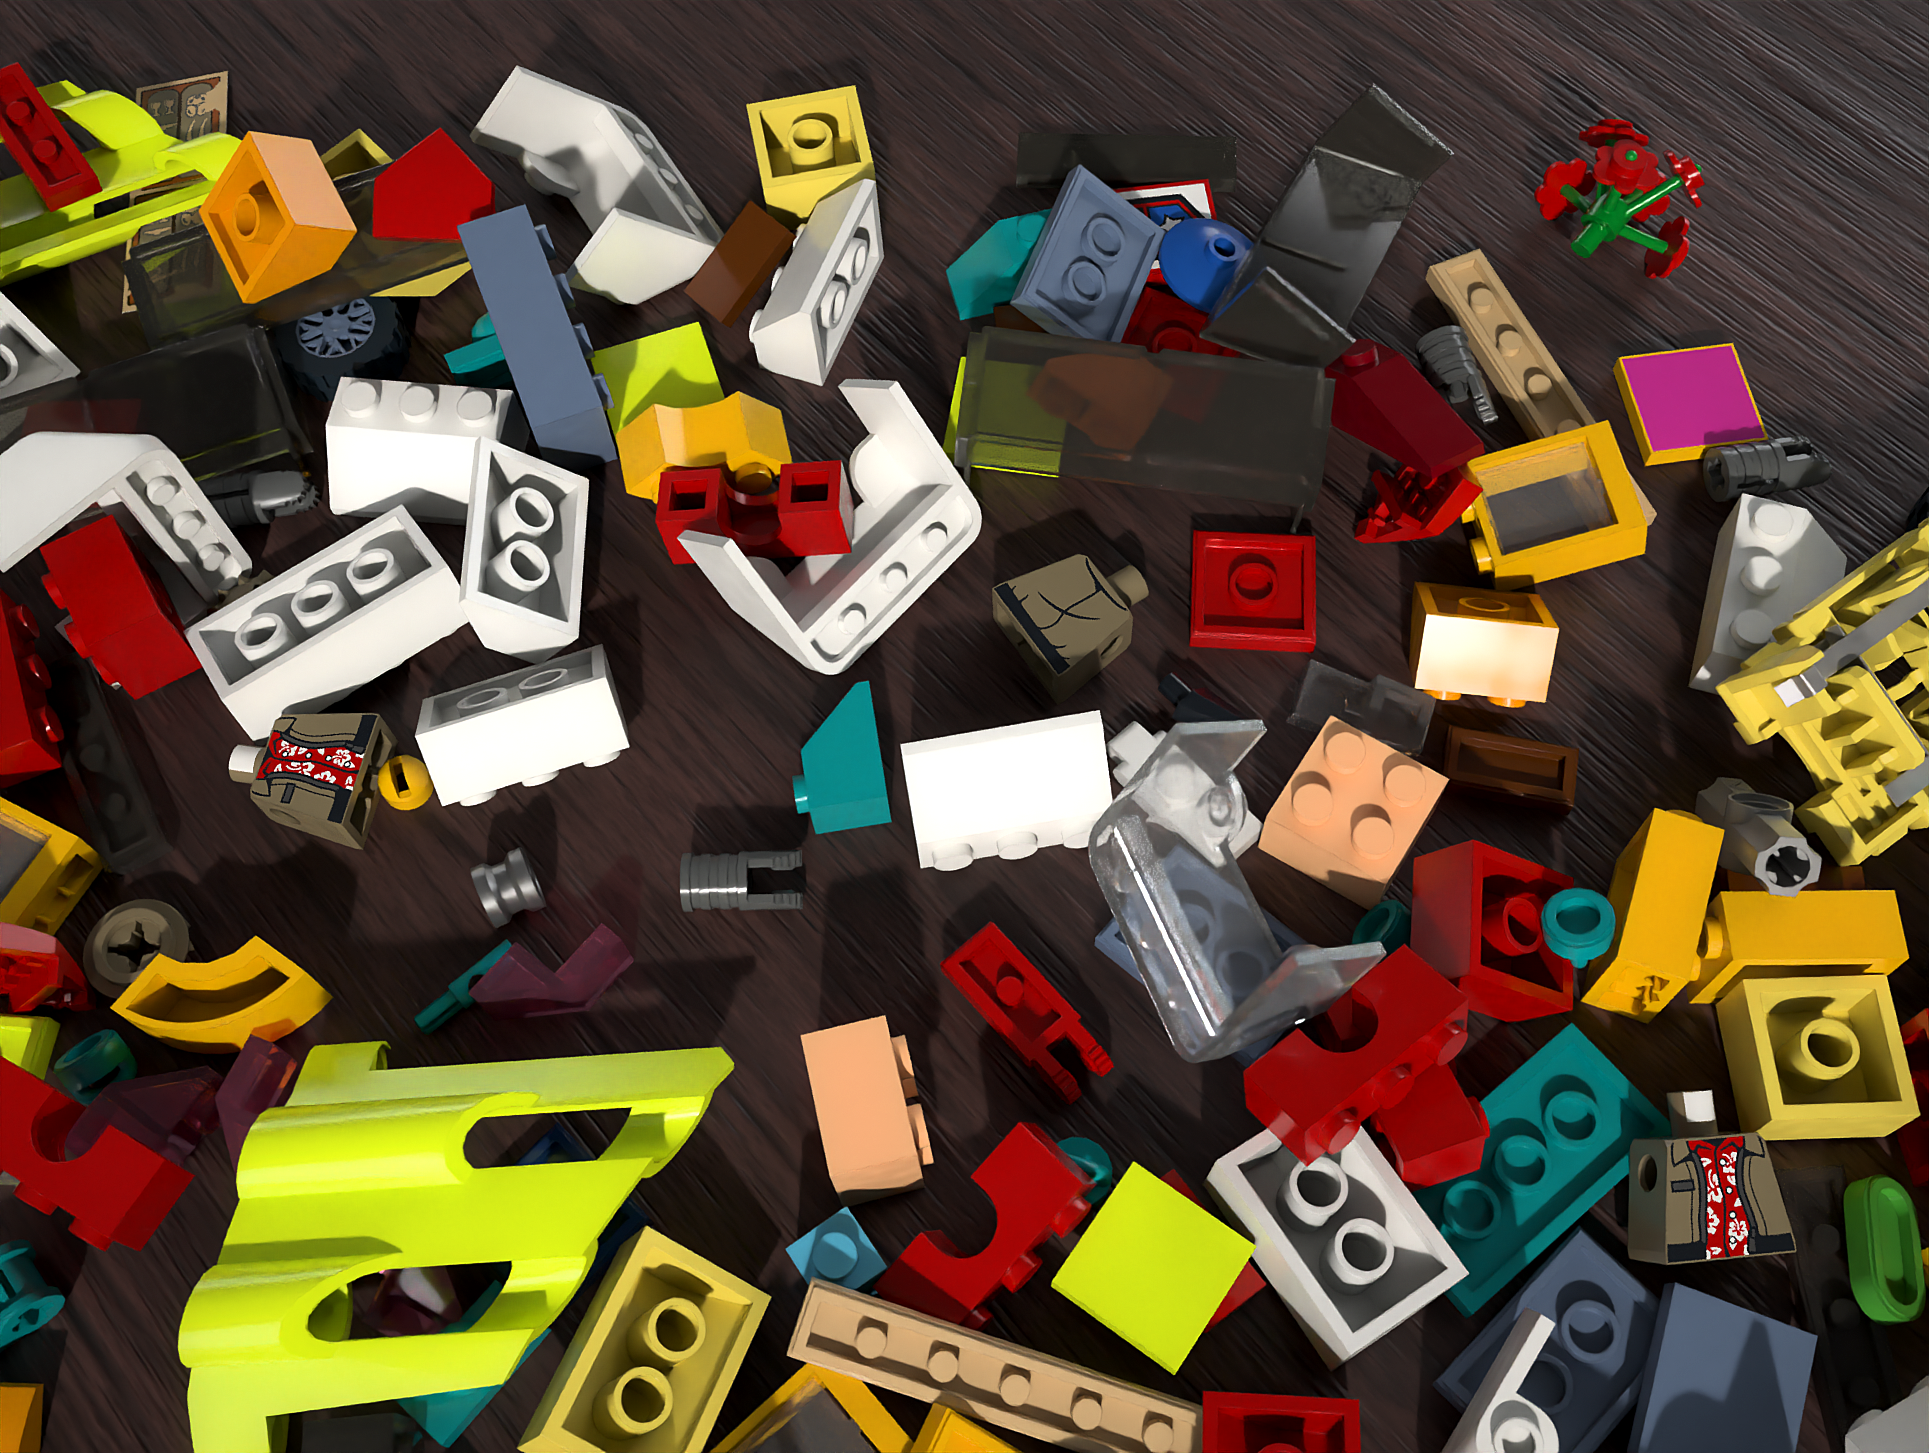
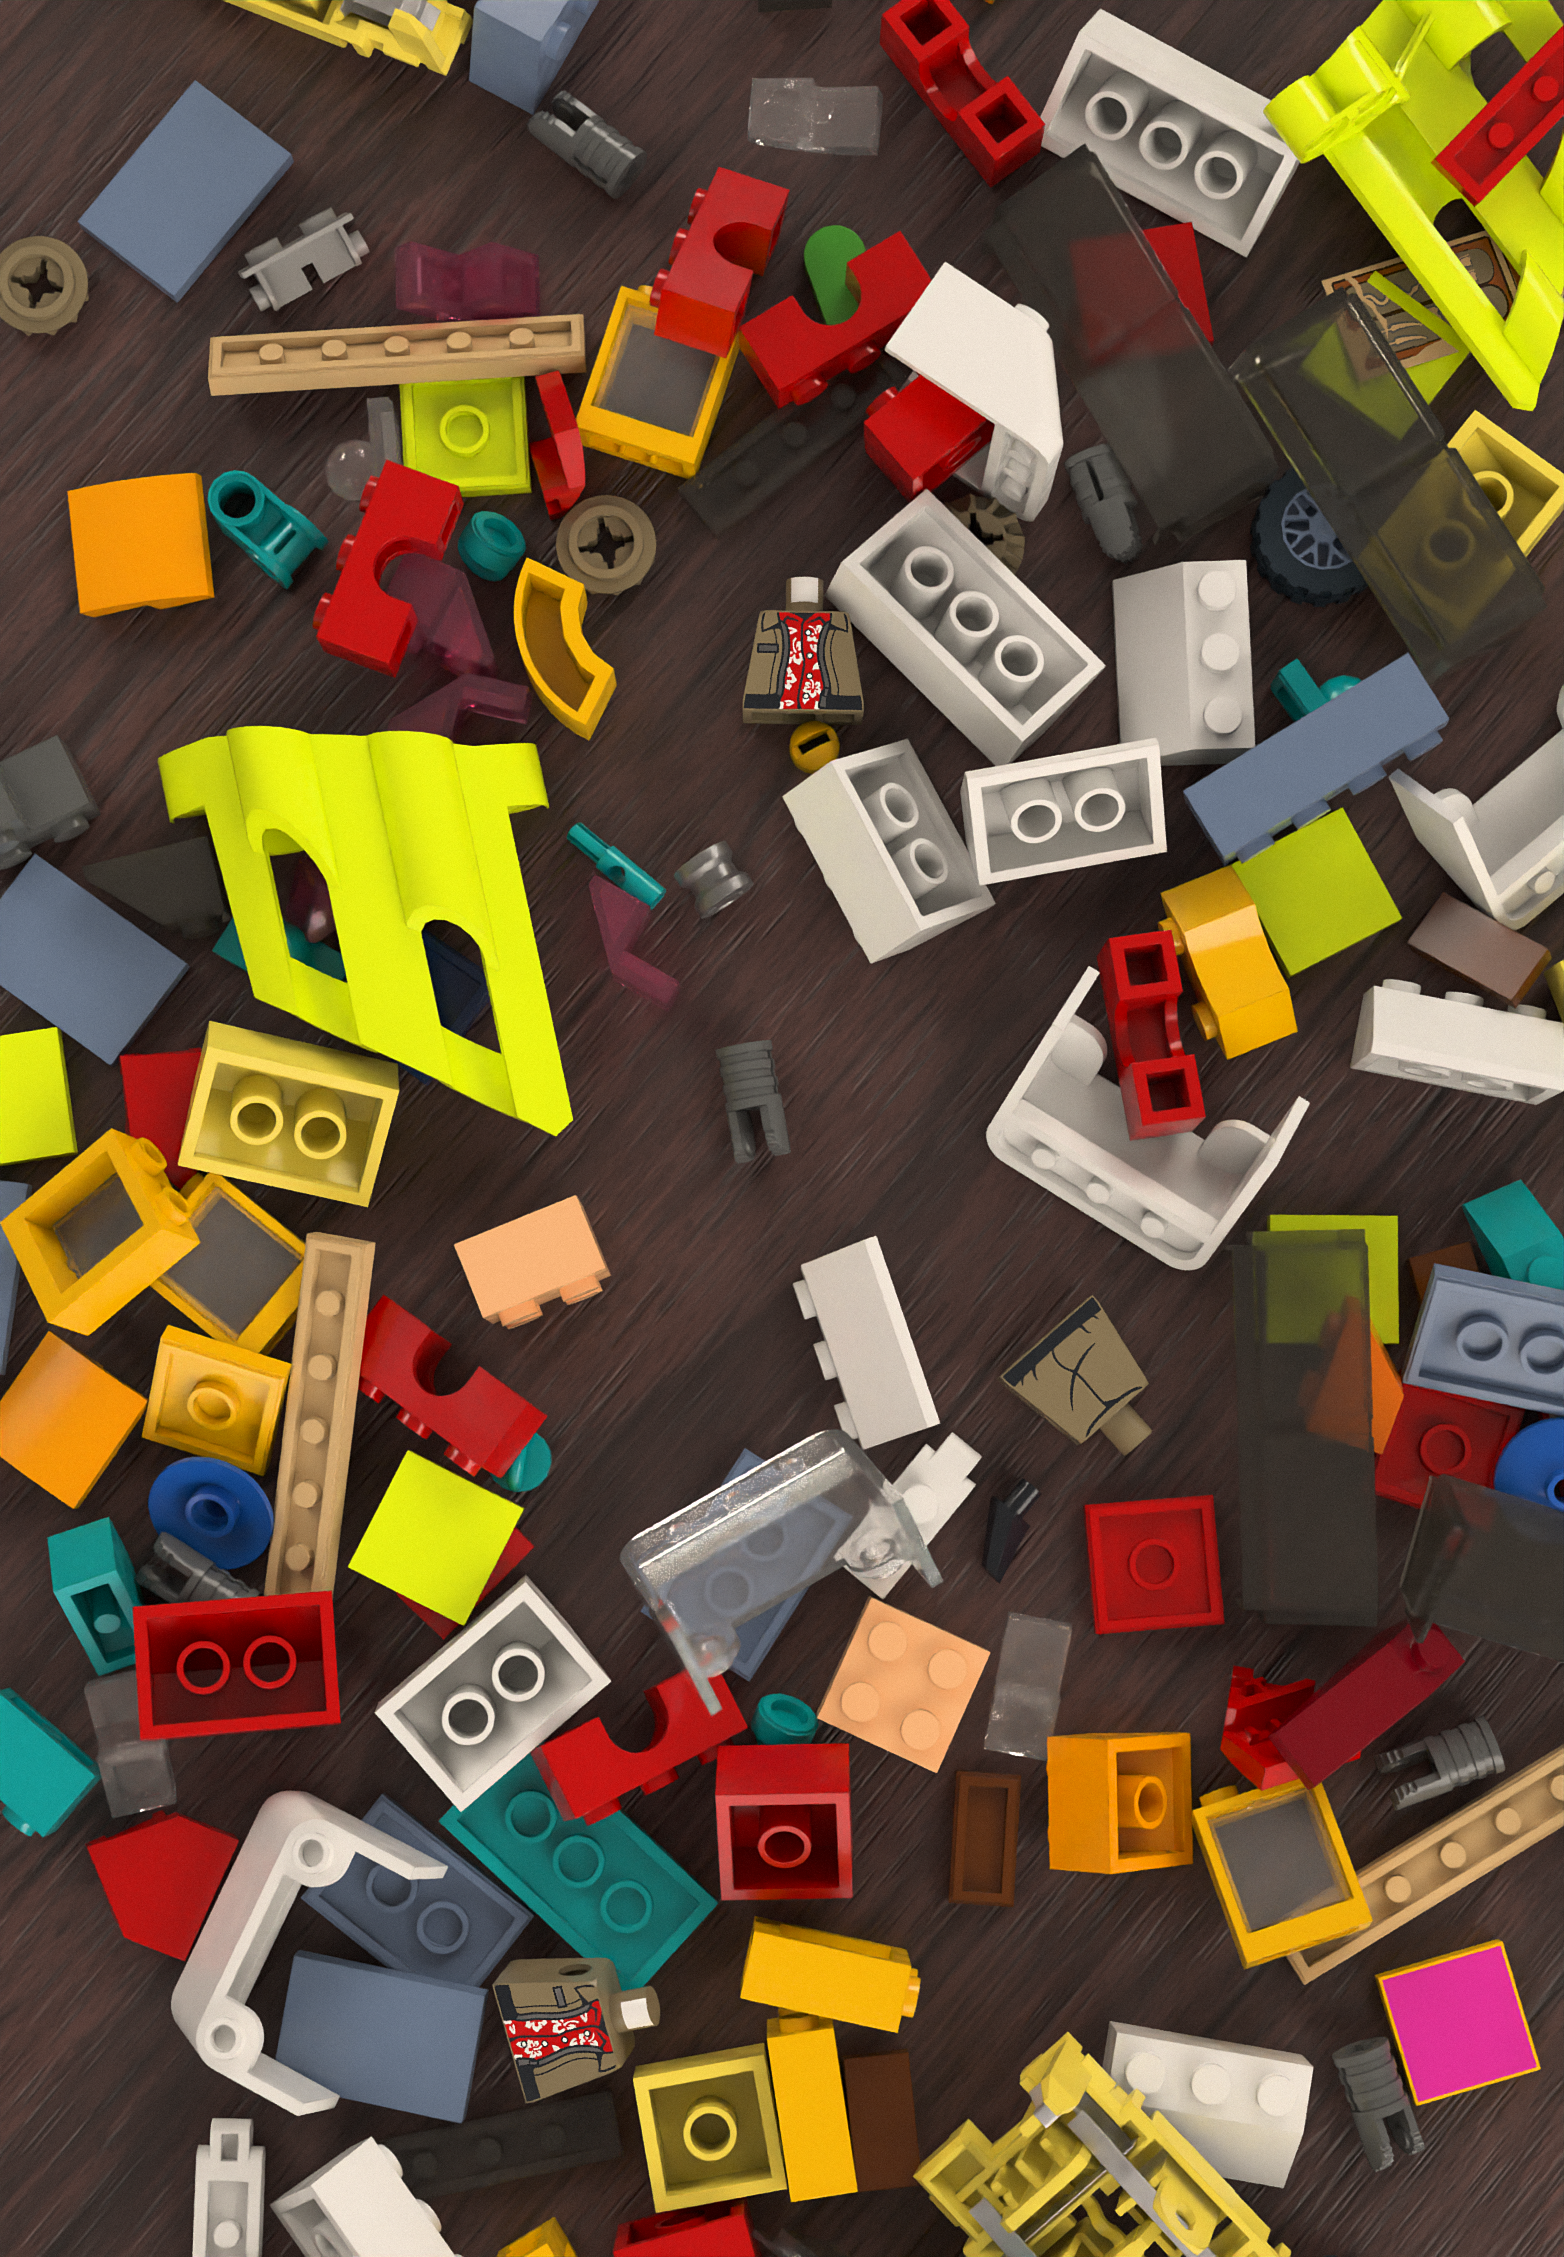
camera: 75 degrees right, 20 degrees up
(276, 216) = (1406, 447): light orange slope -> none
(430, 193) = (1469, 609): red slope -> none
(839, 1254) = (406, 1262): medium azure brick -> none
(844, 768) = (884, 1179): teal slope -> none
(1023, 1008) = (667, 1386): red hinge -> none
(1322, 1096) = (584, 1667): red arch -> none
(1578, 925) = (789, 1898): teal tile -> none
(1758, 837) = (911, 2069): light grey piece -> none
(1884, 1250) = (549, 2187): bright green tile -> none

